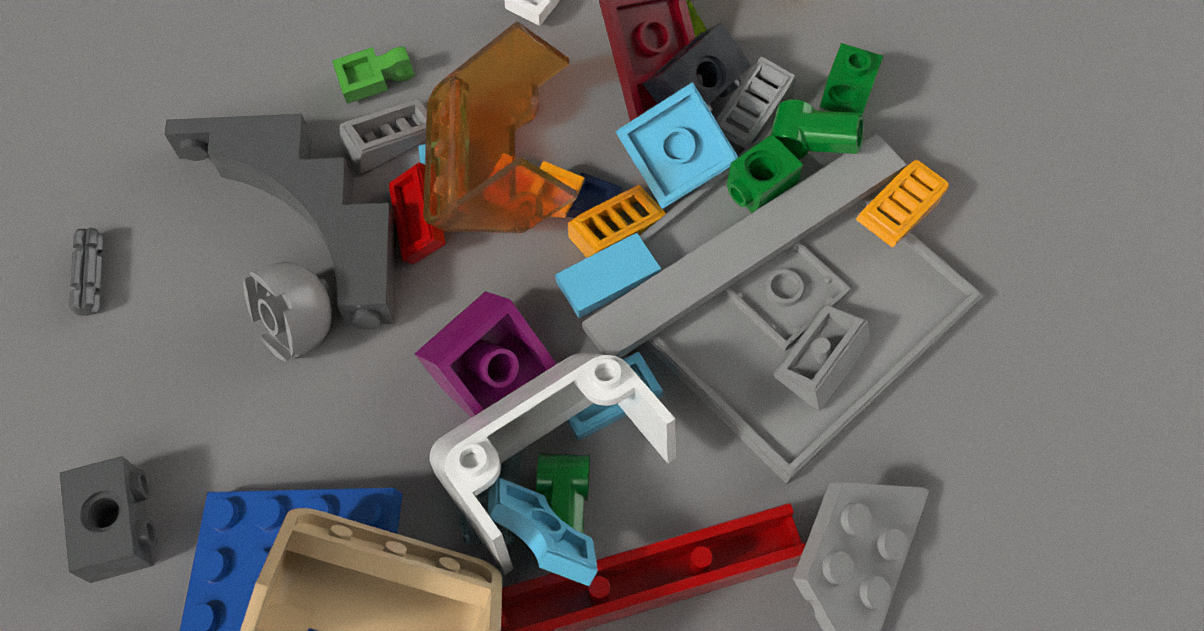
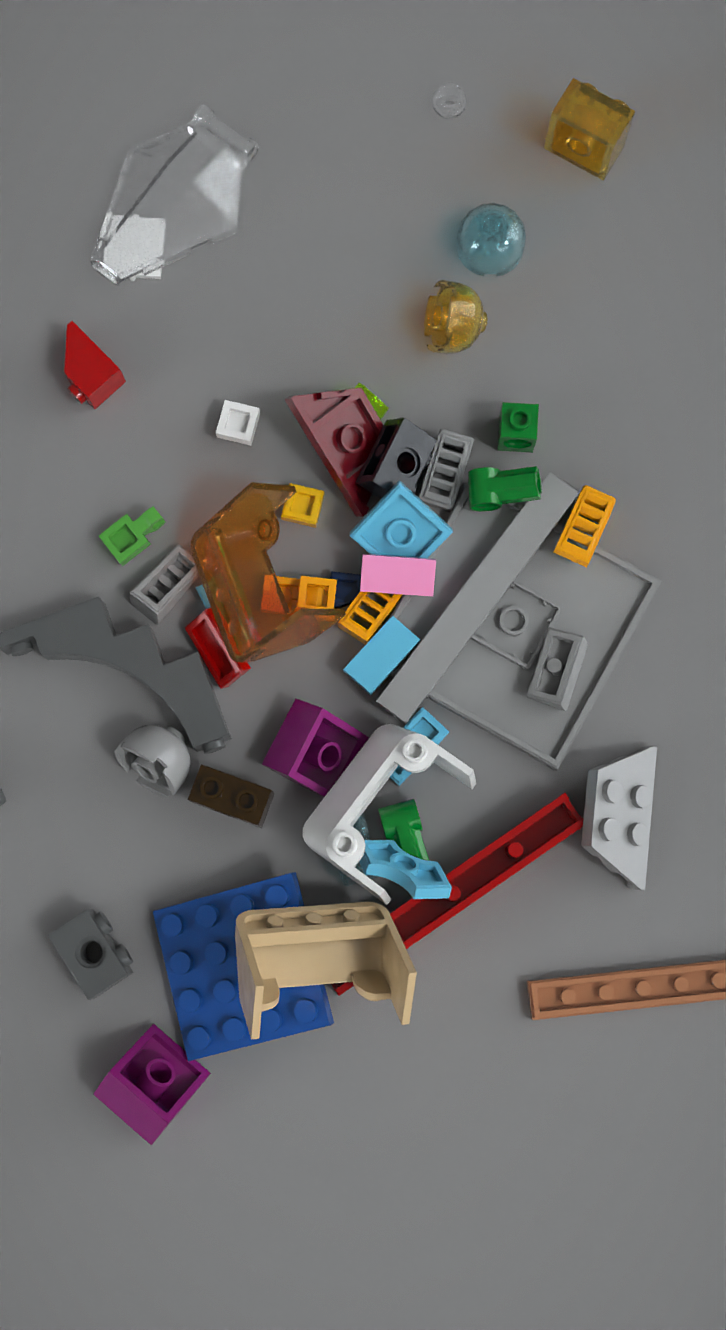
camera: 15 degrees left, 15 degrees up
(362, 381) = (231, 796): none -> dark brown brick
(574, 99) = (303, 506): none -> yellow tile
(658, 190) = (397, 575): none -> bright pink tile
(767, 160) = (475, 522): green brick -> none

